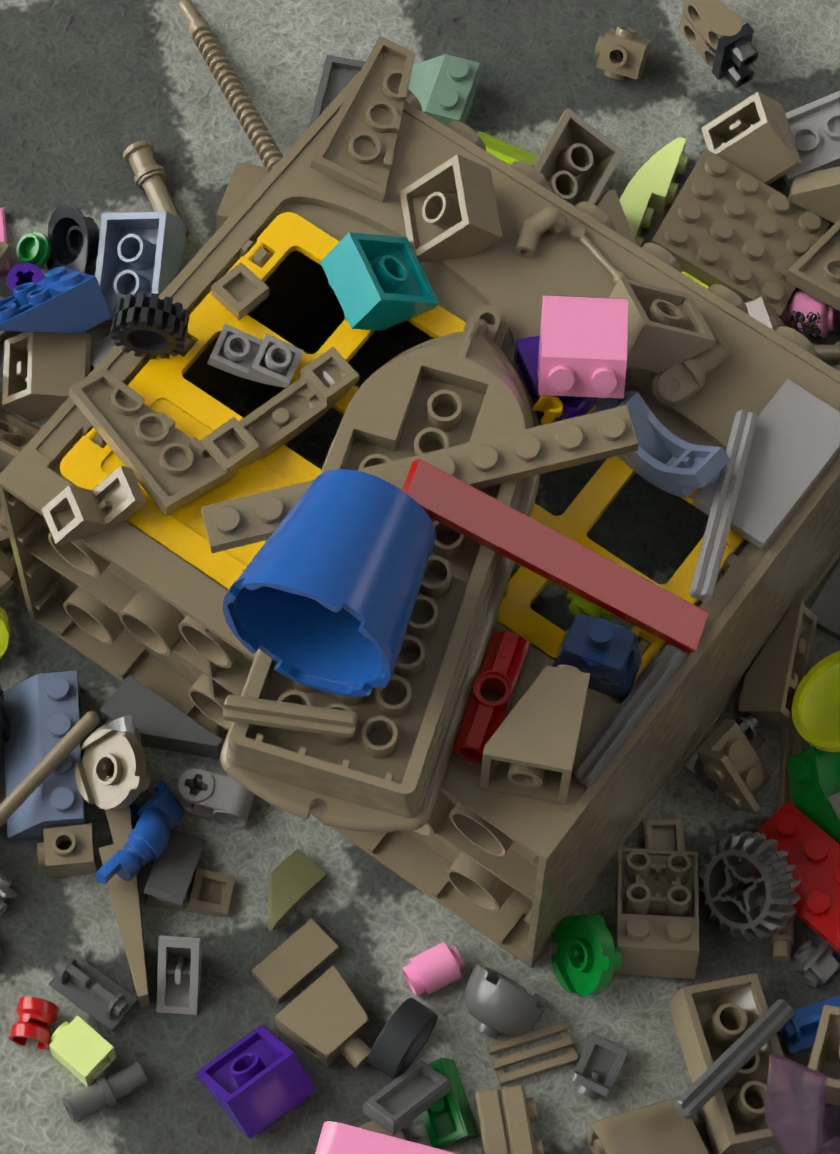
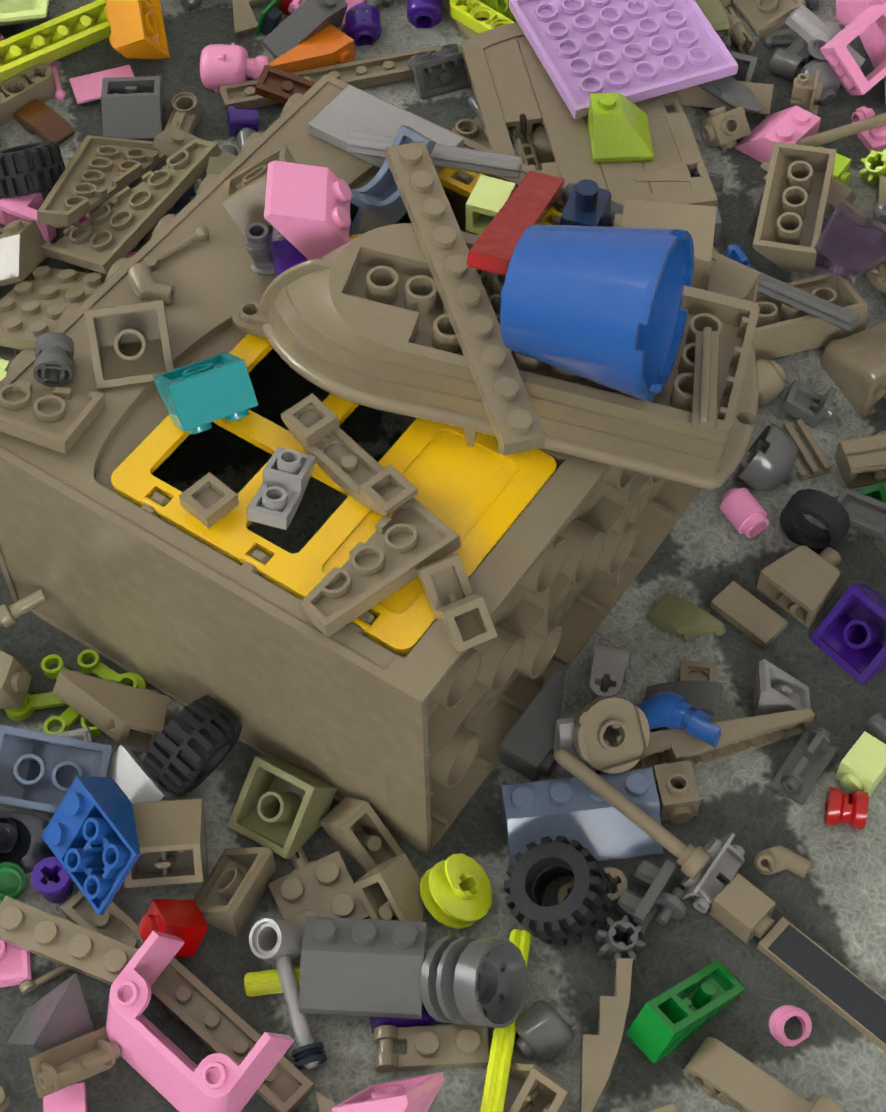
camera: 90 degrees left, 10 degrees down
(150, 325) = (257, 557): black tyre -> none
(429, 146) = (53, 359): none -> dark grey wheel
(632, 1015) = (770, 381): none -> dark tan head
(648, 558) = (486, 201): none -> yellowish green brick

